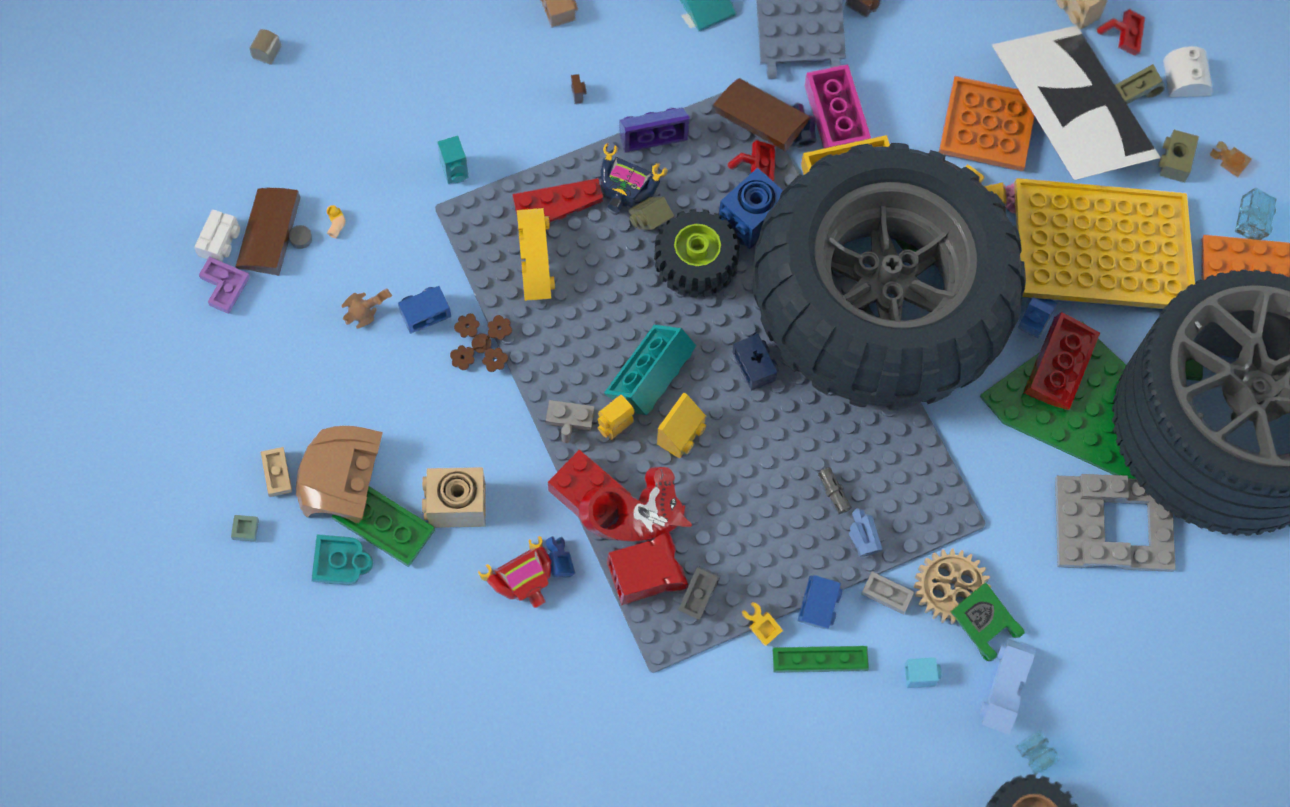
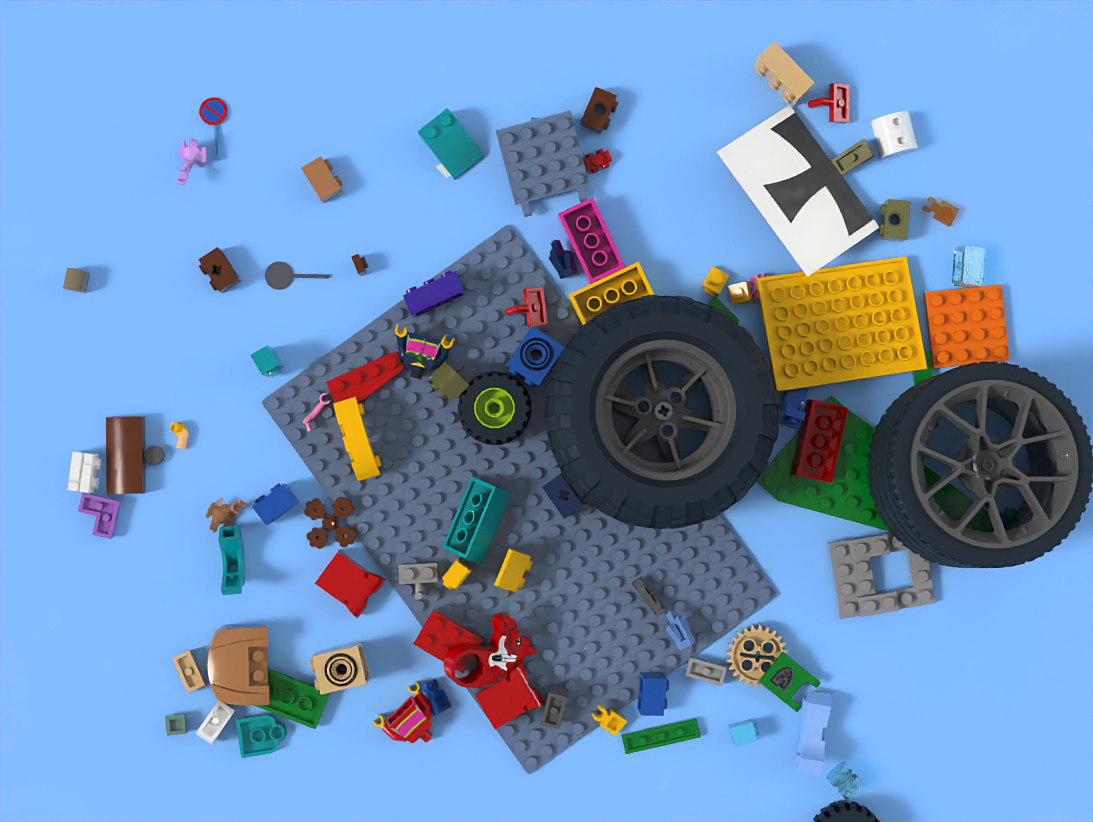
camera: 10 degrees left, 20 degrees up
(286, 536) = (215, 722): none -> white plate
(360, 355) = (232, 559): none -> teal arch
(421, 55) = (228, 275): none -> reddish brown brick
(487, 408) = (349, 582): none -> red piece
(488, 87) = (280, 275): none -> dark grey piece
(504, 216) = (314, 413): none -> bright pink piece
(761, 114) = (525, 259): reddish brown slope -> none
(859, 38) = (600, 159): none -> red piece
(987, 124) = (722, 224): orange plate -> none

